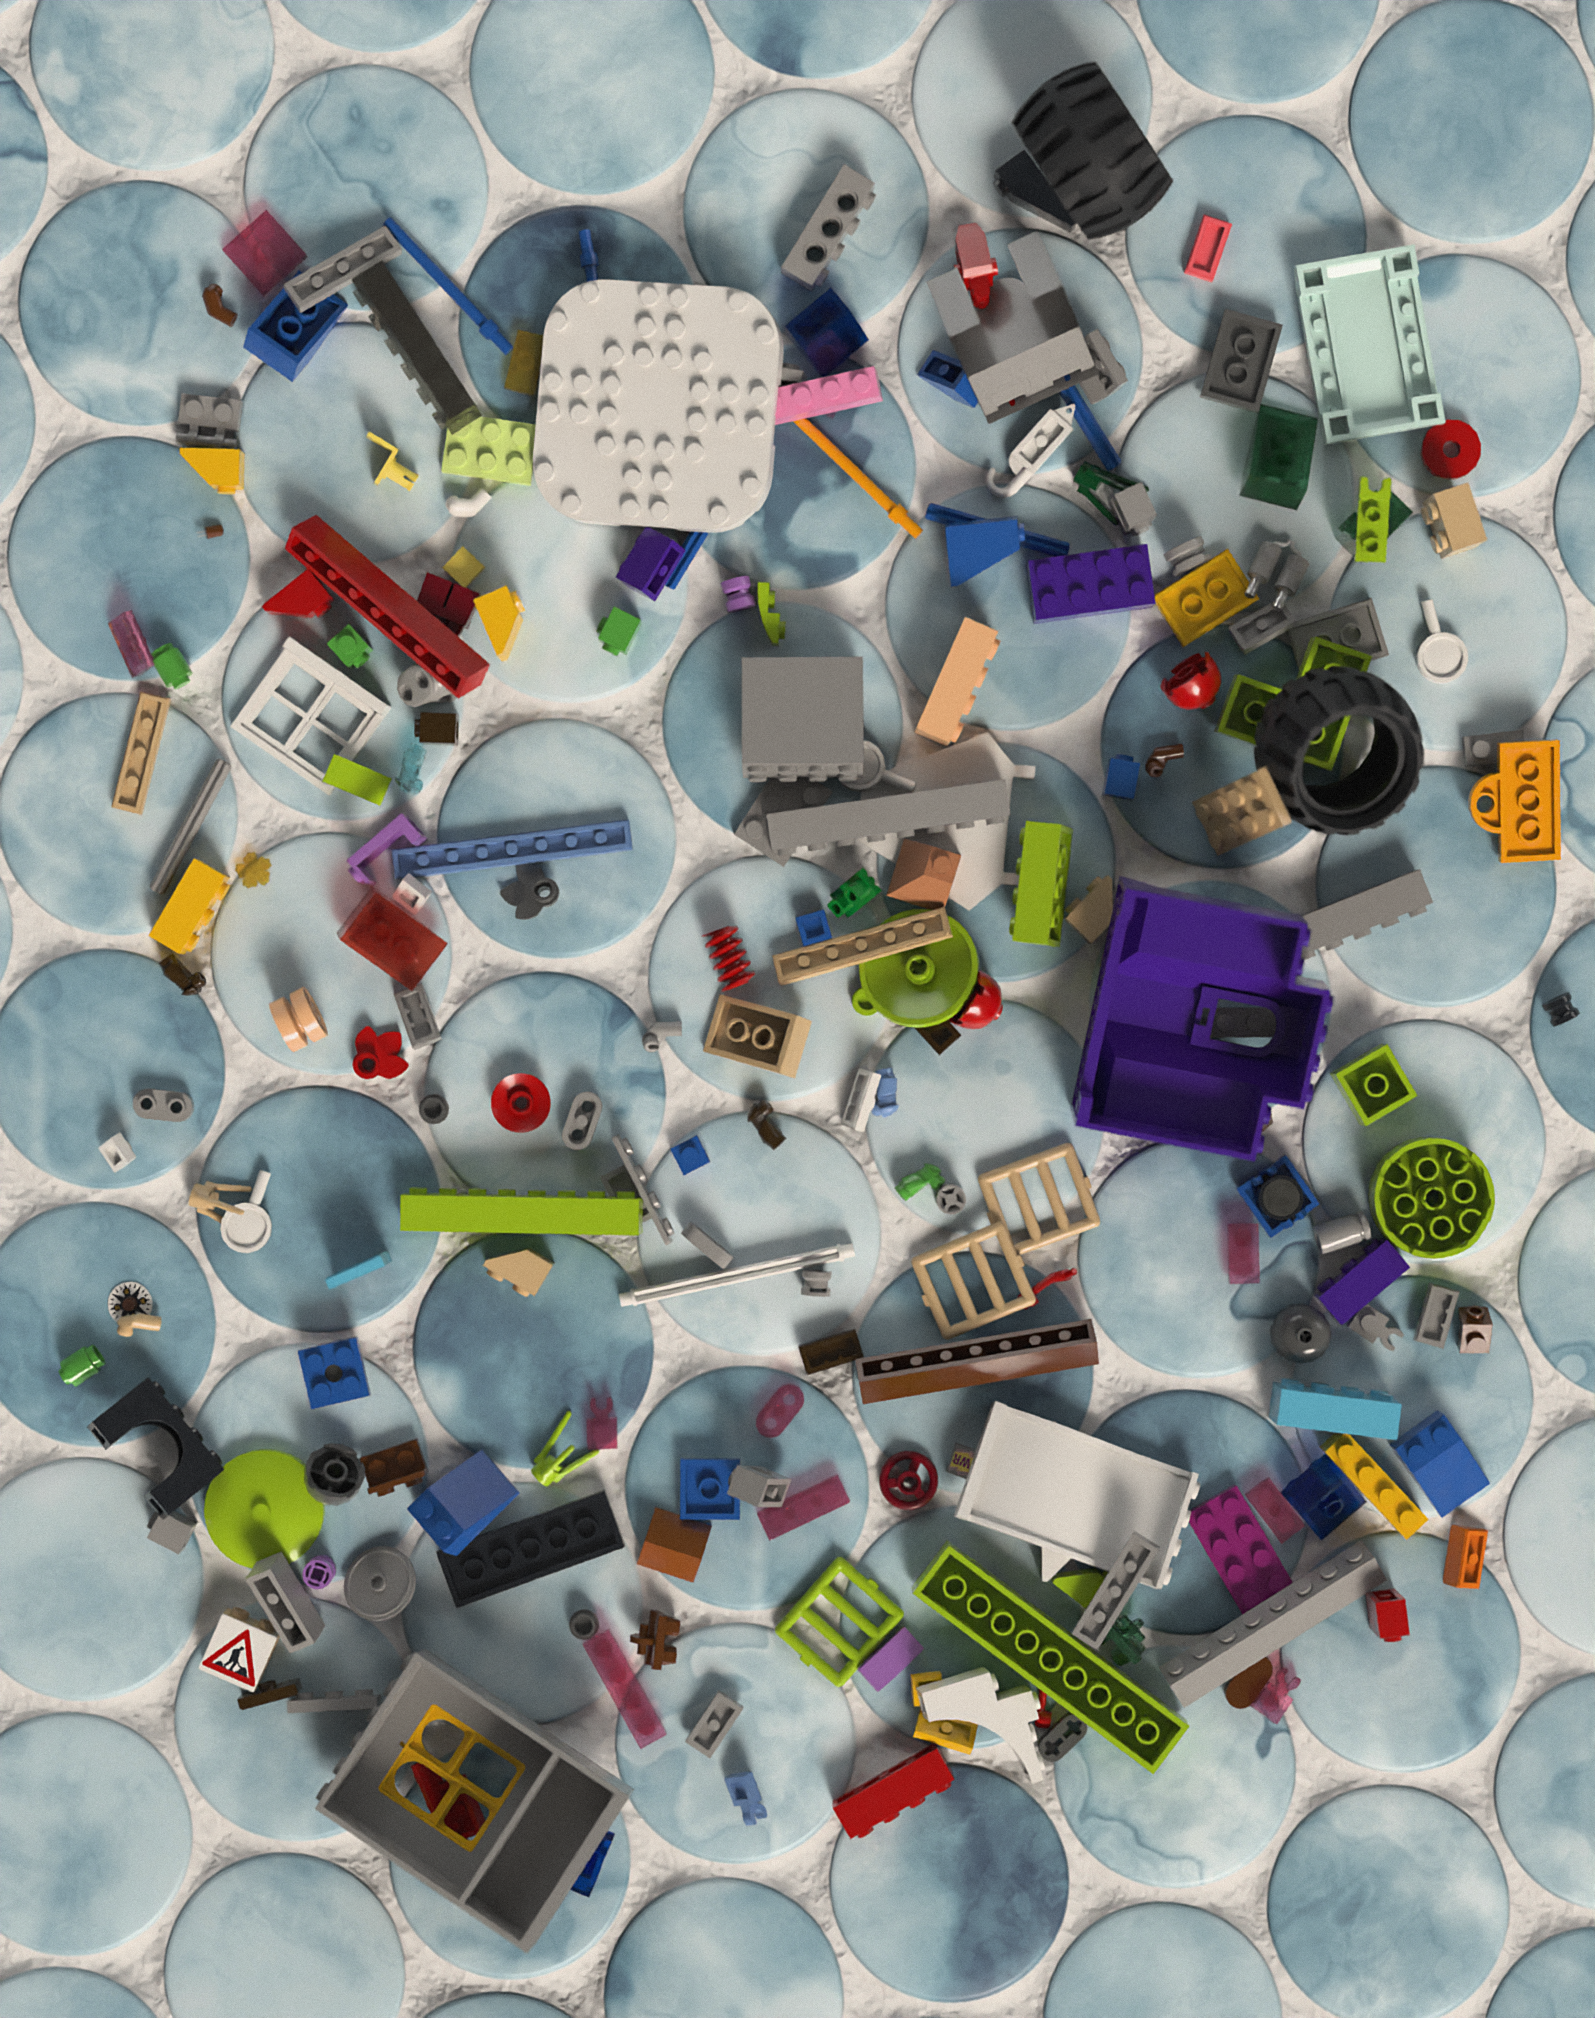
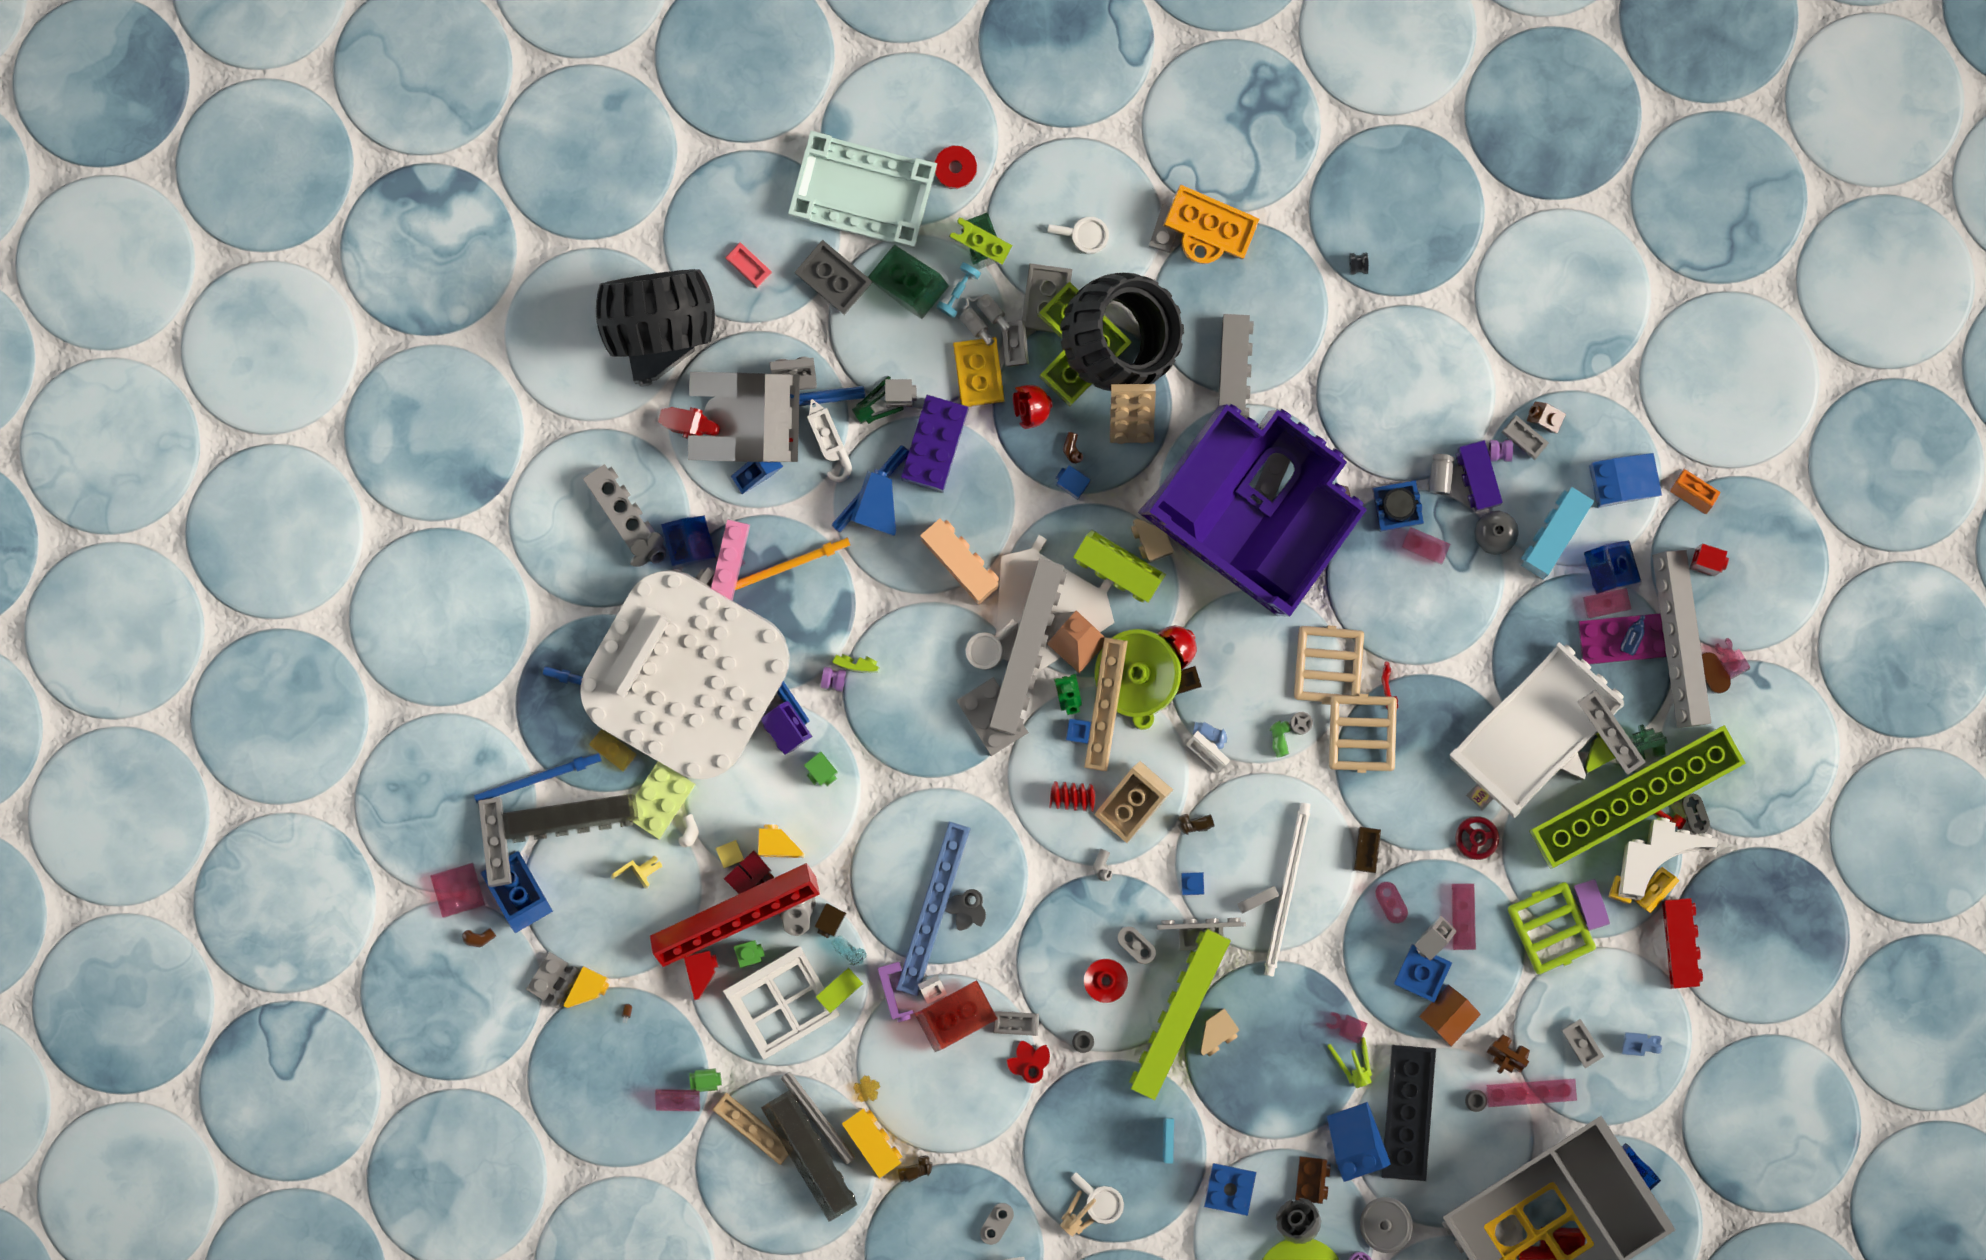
camera: 70 degrees left, 5 degrees down
(137, 837) = (809, 1155): none -> clear smoke brick
(298, 1019) = (981, 1103): light nougat wheel -> none
(656, 330) = (636, 651): none -> white panel
(792, 288) = (648, 550): none -> dark grey plate
(802, 718) = (937, 673): light grey brick -> none
(816, 1279) = (1315, 836): light grey wheel -> none
(977, 1361) = (1417, 755): reddish brown brick -> none
(1187, 556) = (945, 371): light grey wheel -> none
(1247, 1563) = (1633, 637): none -> dark blue piece
(1327, 527) = (969, 271): none -> medium azure wheel
(1371, 1324) = (1512, 483): light grey plate -> none
(1373, 1084) = (1352, 409): lime brick -> none
(1374, 1483) = (1618, 529): yellow brick -> none
(1400, 1191) = (1440, 427): lime brick -> none
(1406, 1293) = (1505, 449): none -> medium lavender wheel
(1453, 521) = (1004, 187): tan brick -> none

